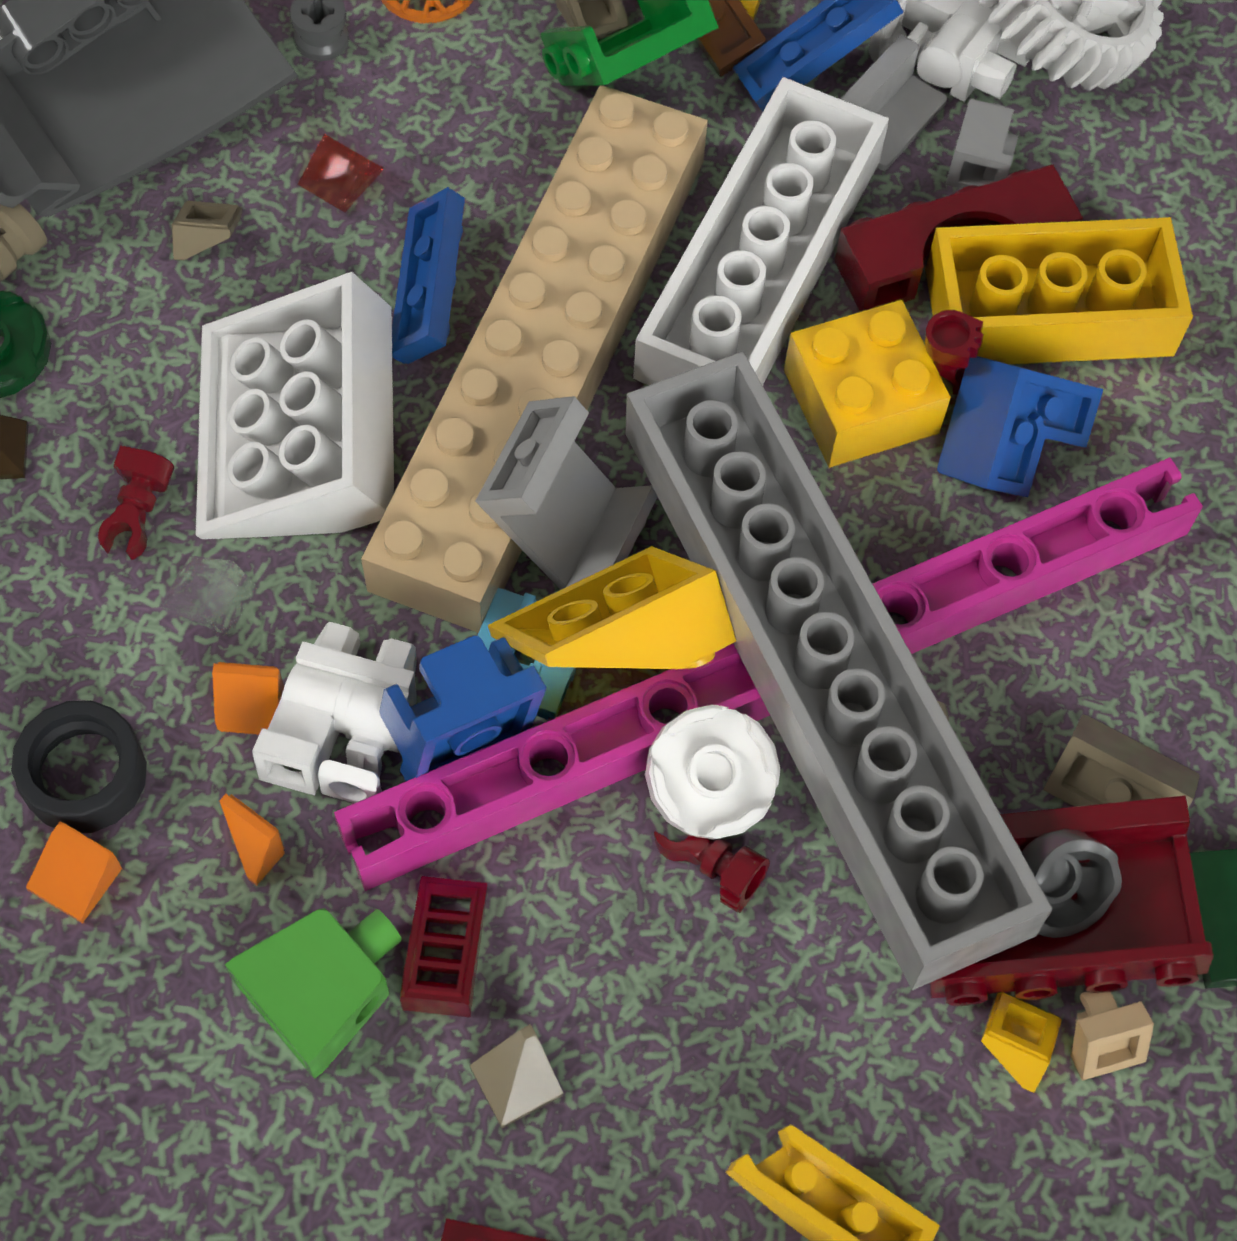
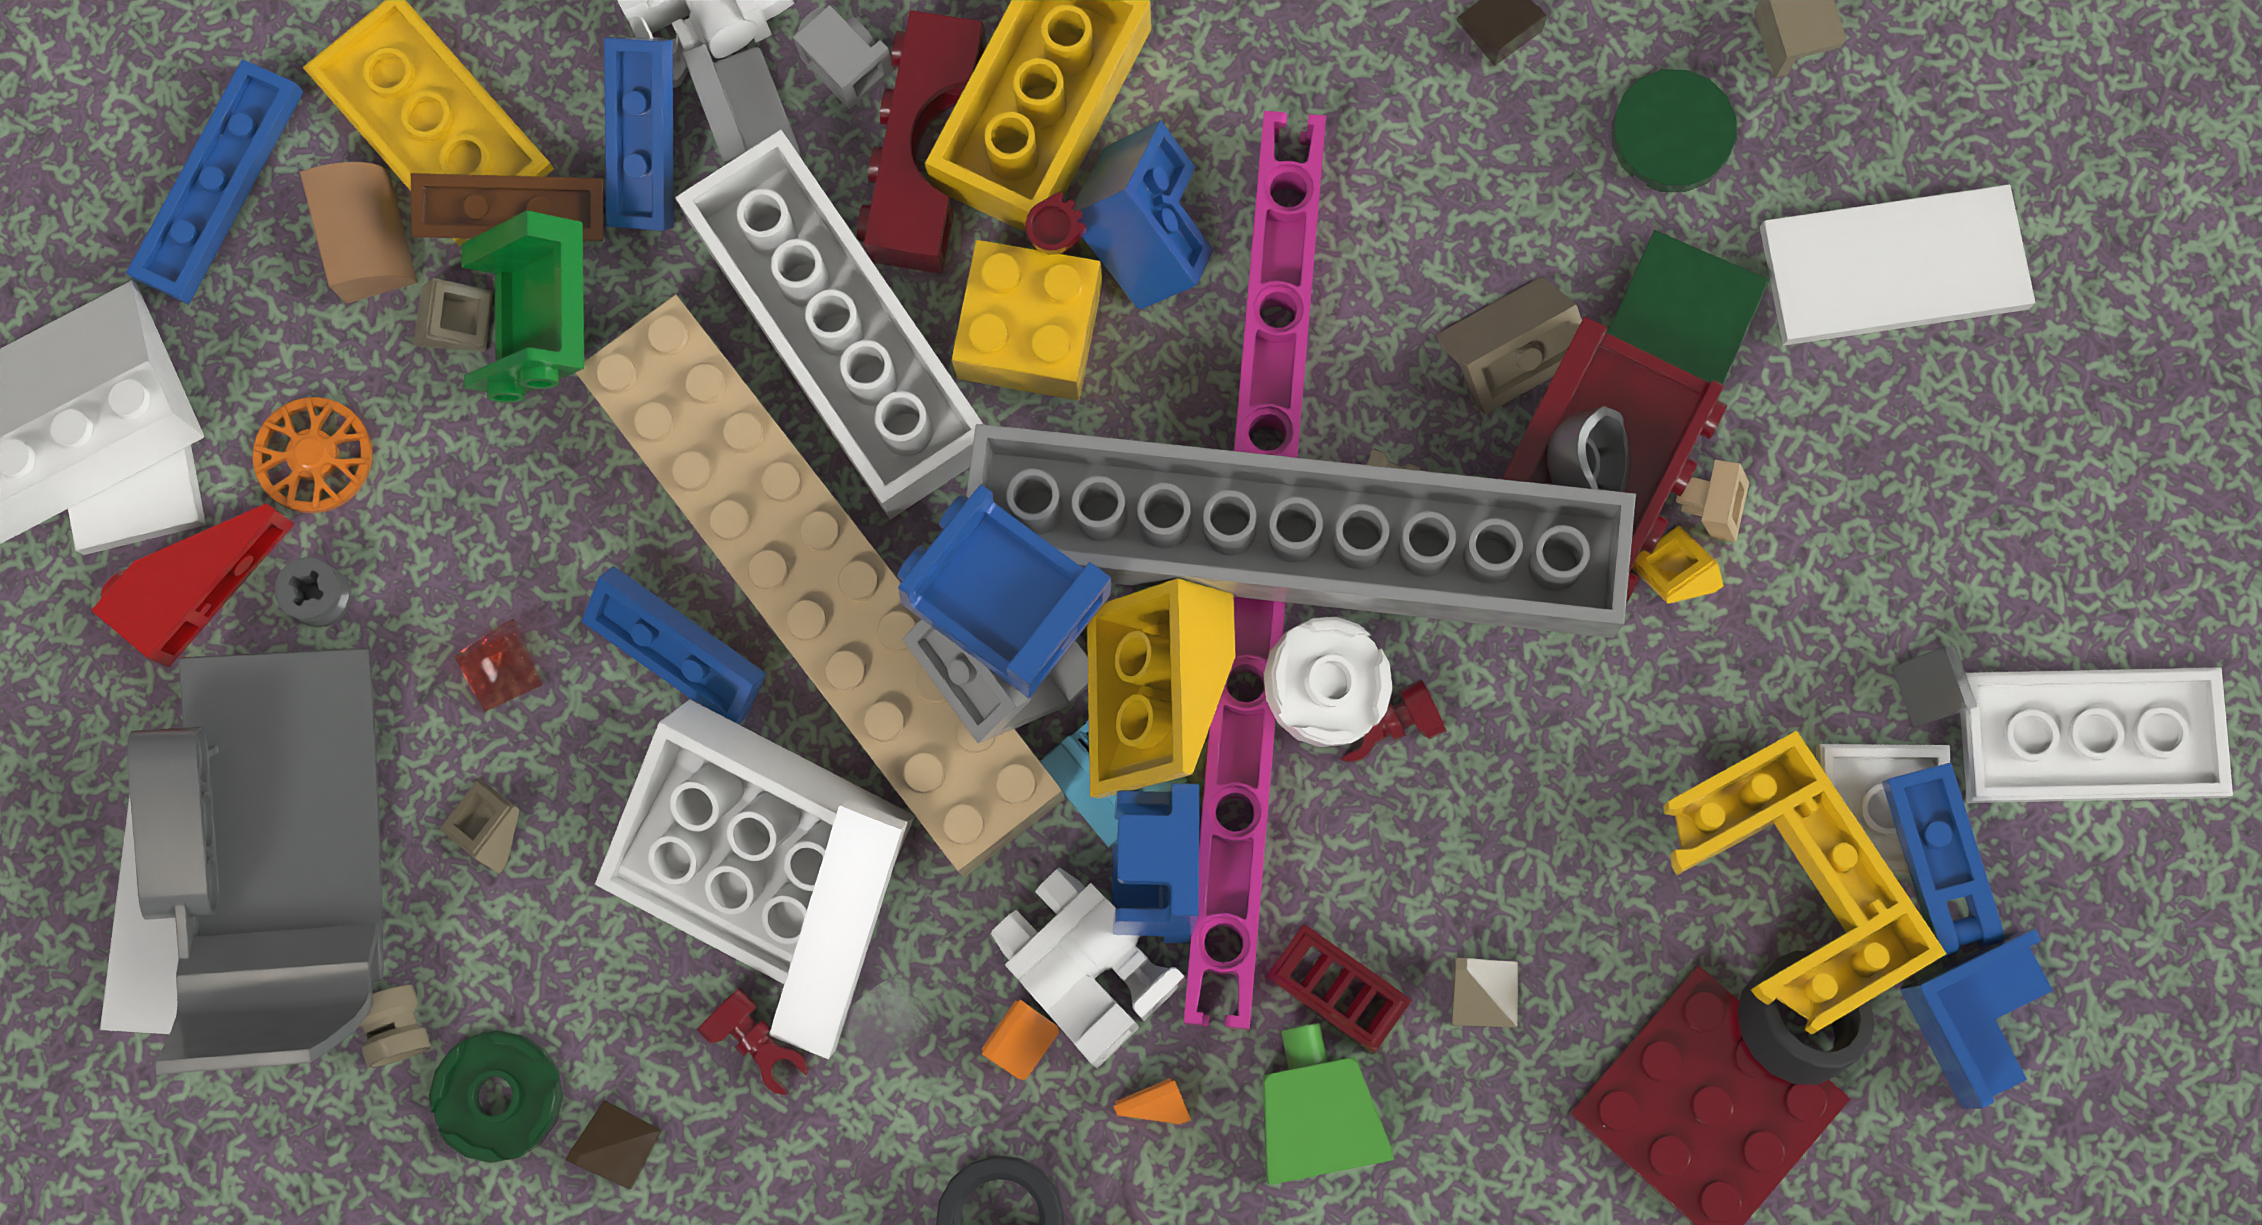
camera: 50 degrees left, 15 degrees up
(260, 495) = (837, 928): none -> white tile
(612, 429) = (1001, 591): none -> blue panel

